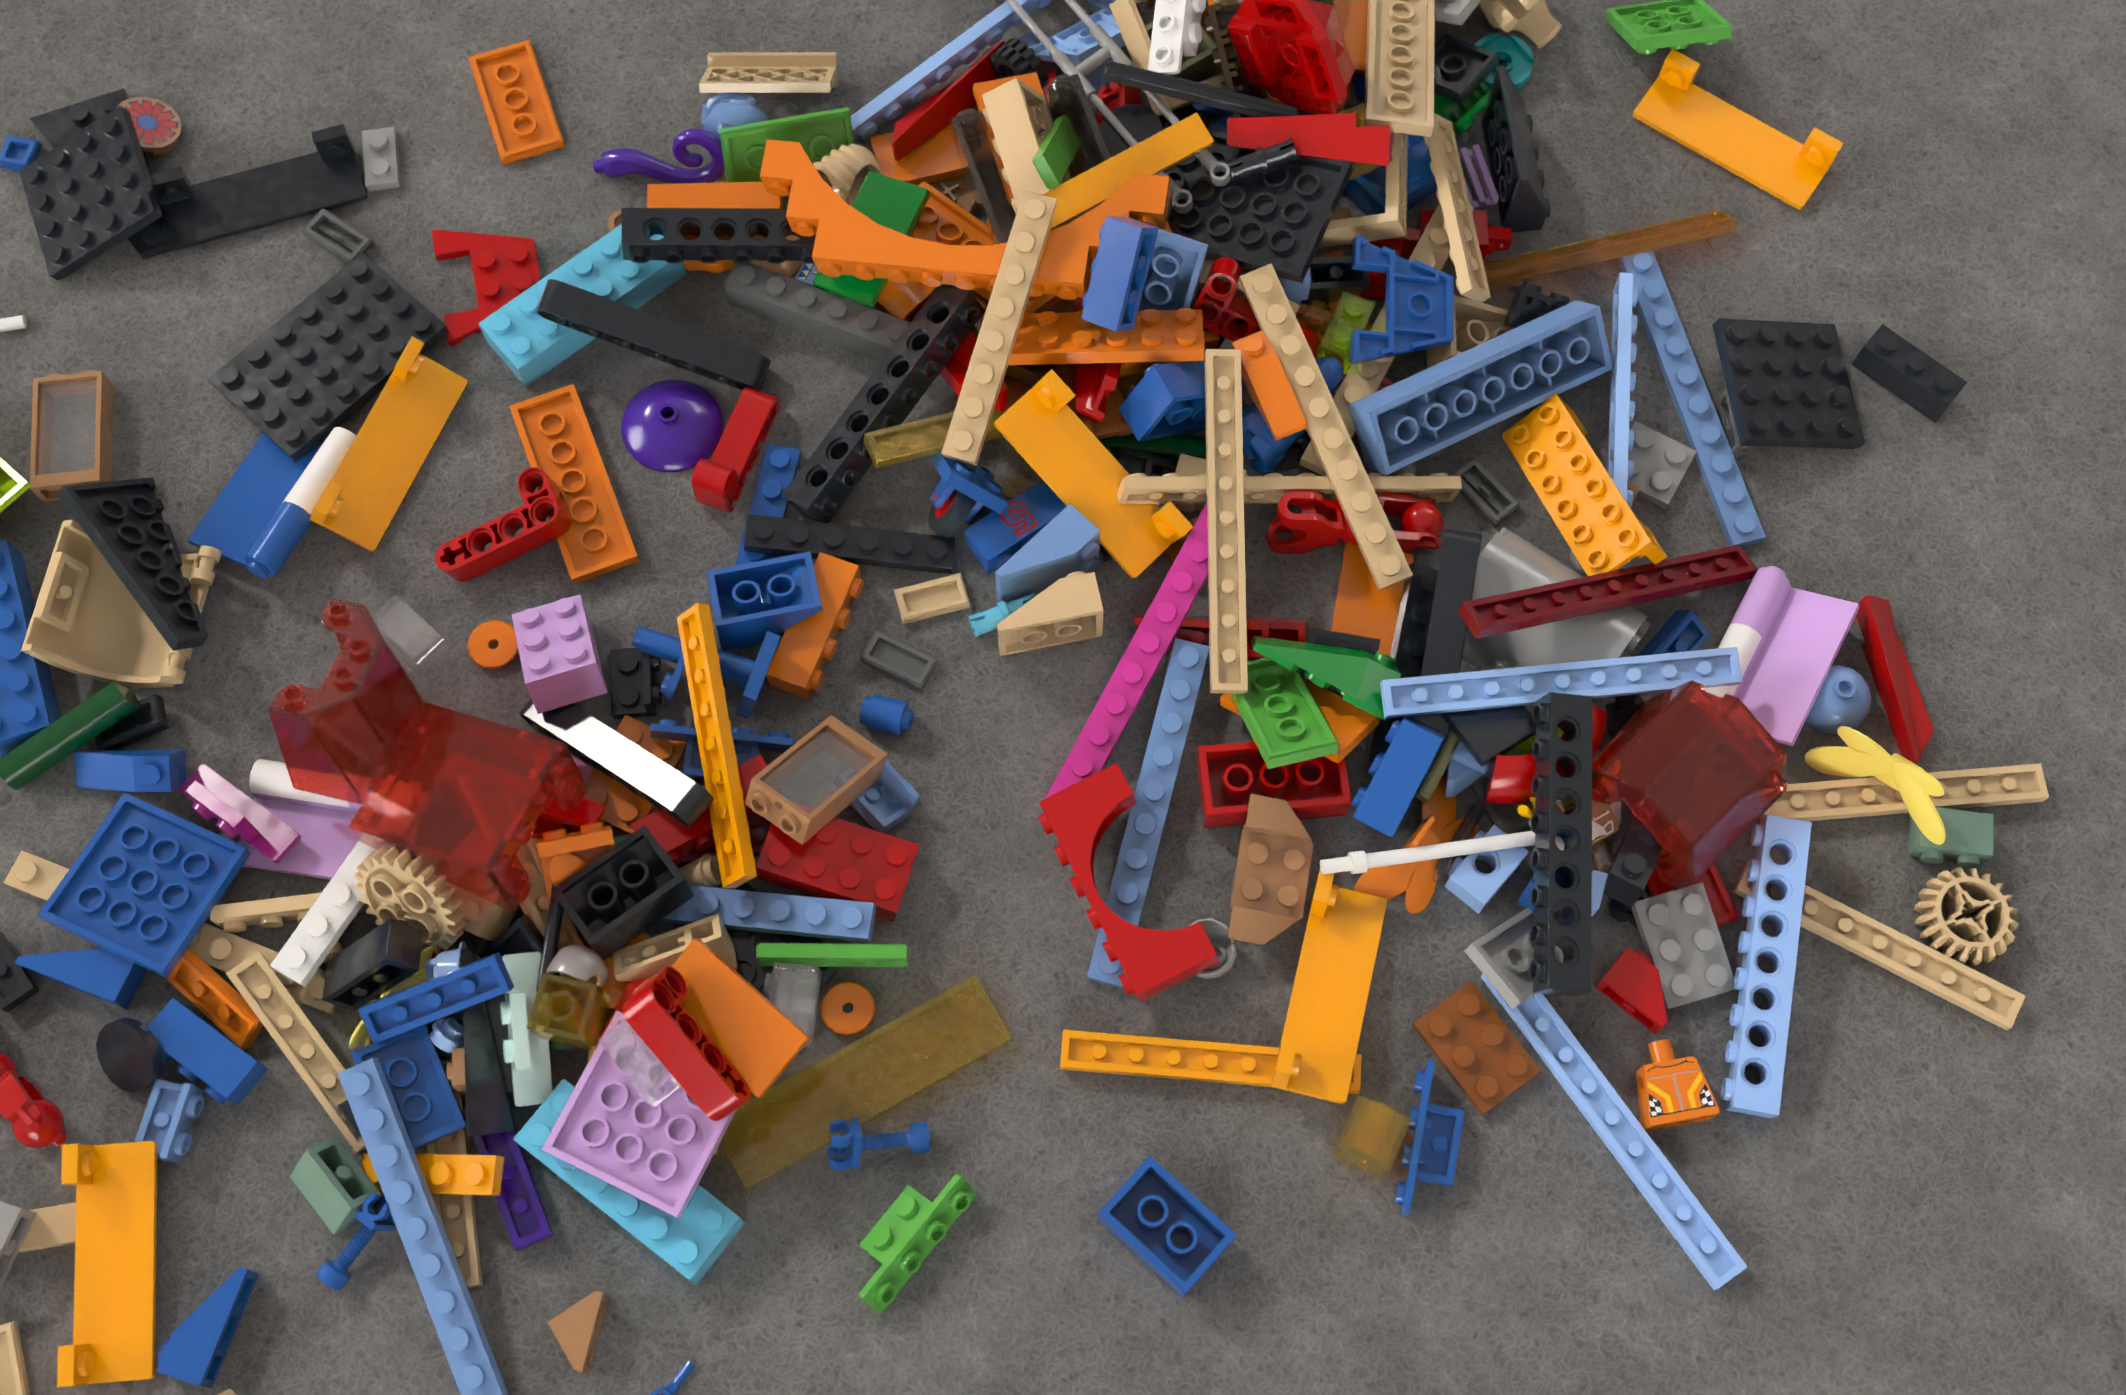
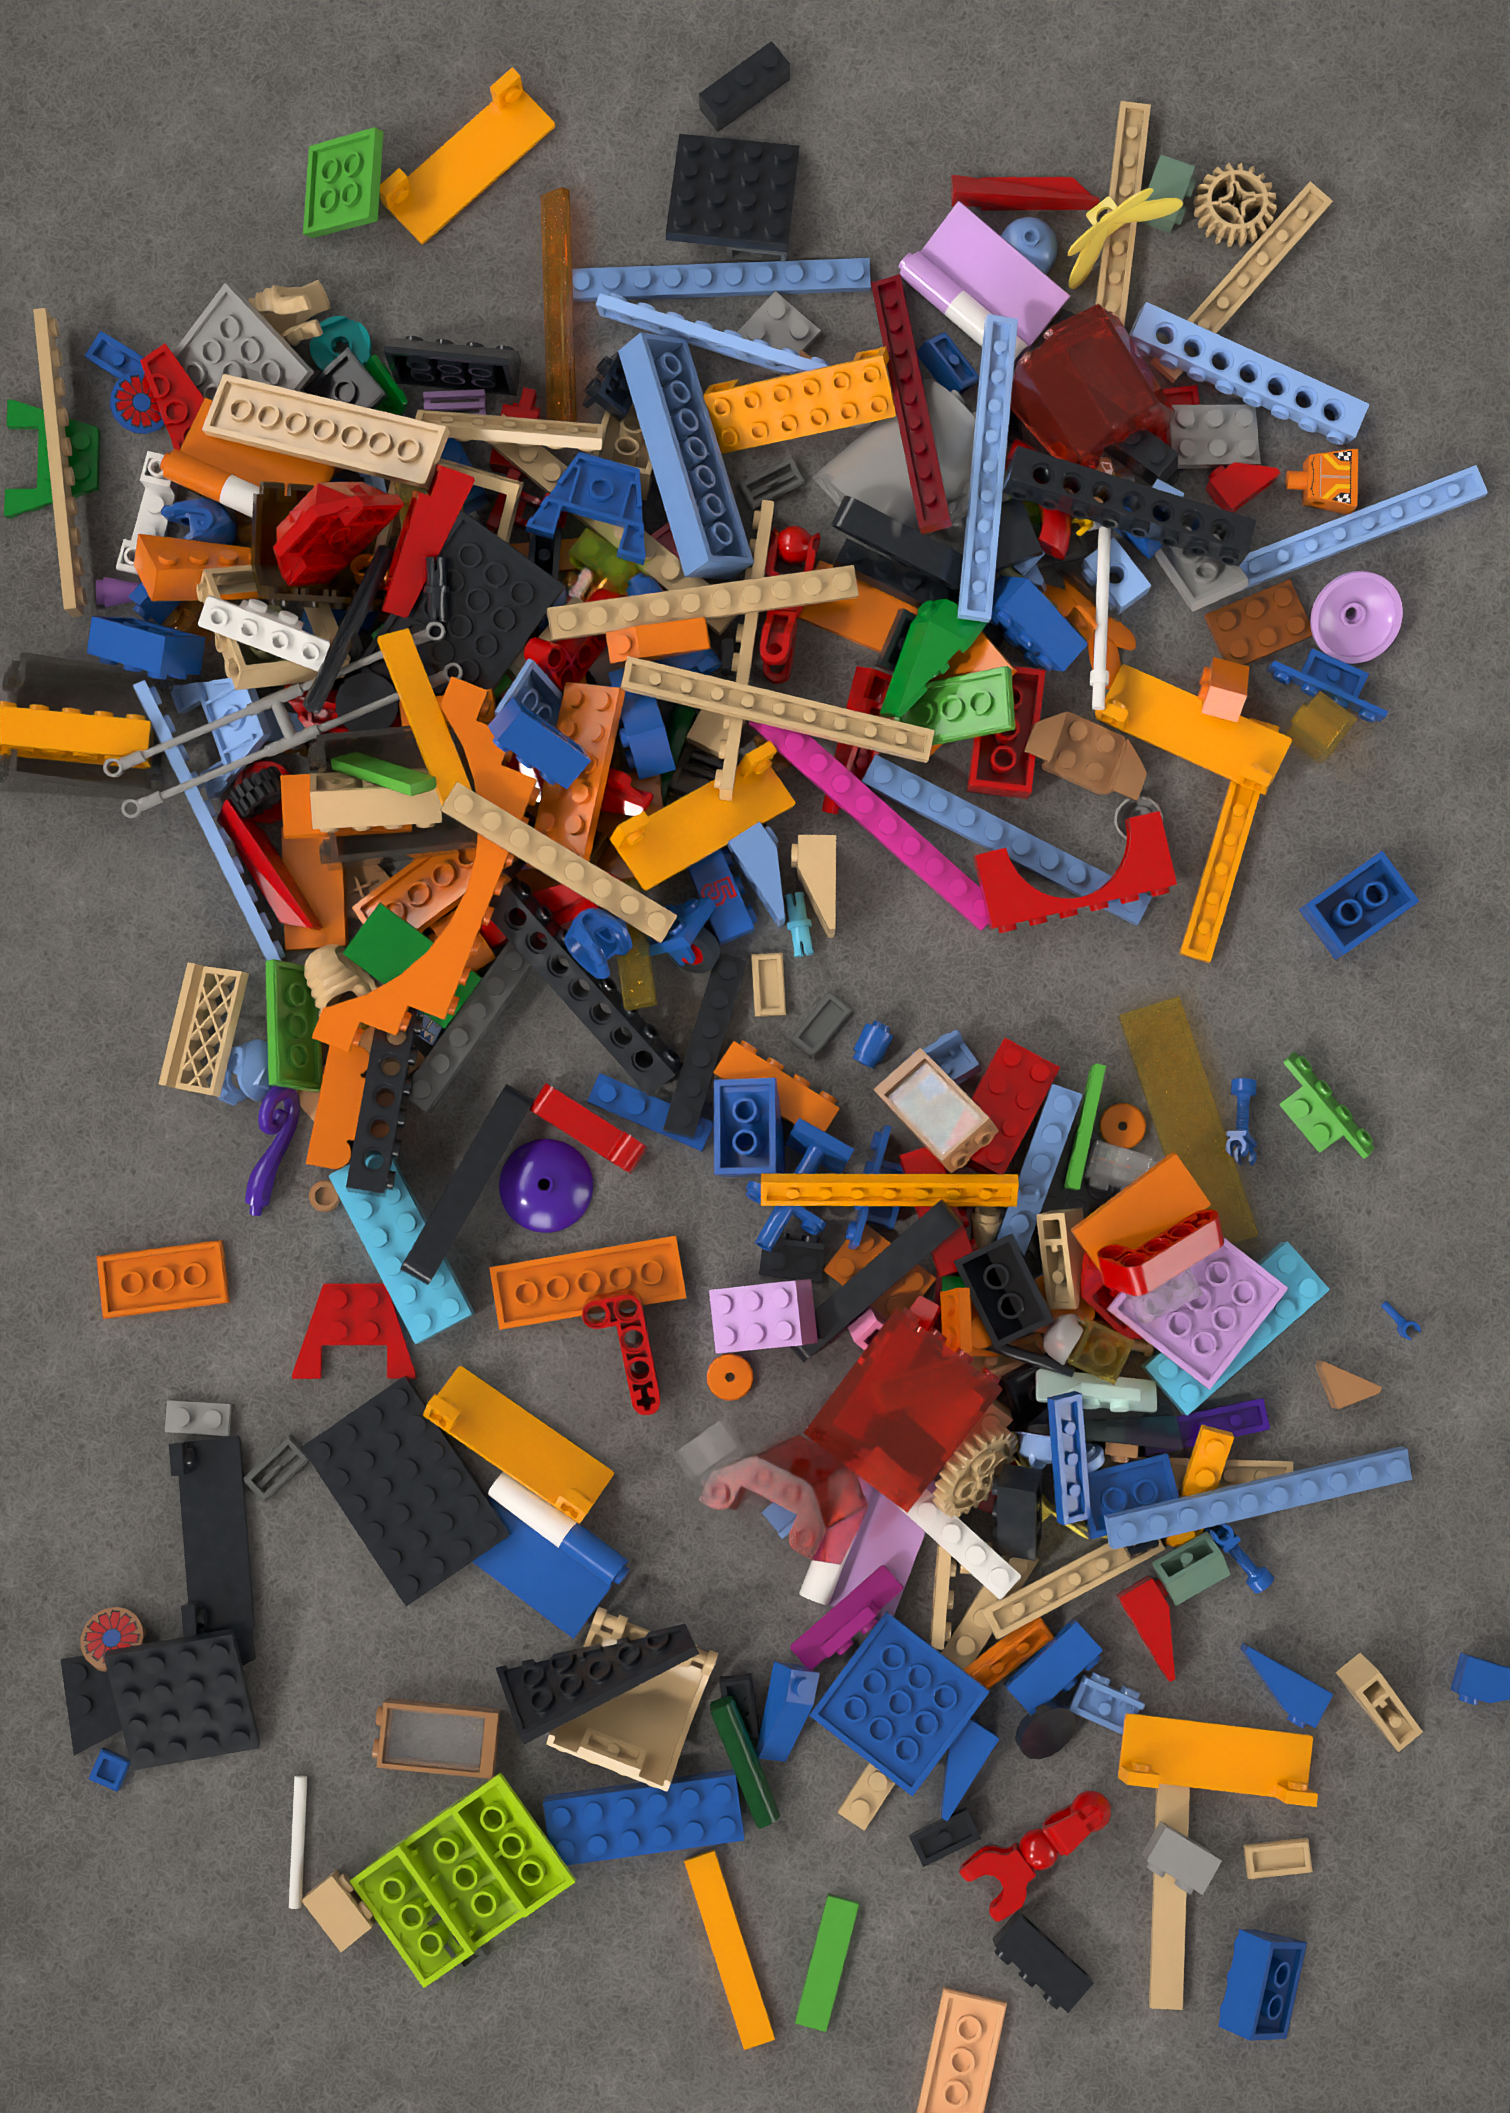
camera: 75 degrees left, 15 degrees up
(265, 1155) = (1151, 1618): none -> red slope
(928, 387) = (596, 938): none -> blue helmet
(1384, 1011) = (1223, 689): none -> orange brick
(1491, 1156) = (1369, 628): none -> lavender dish

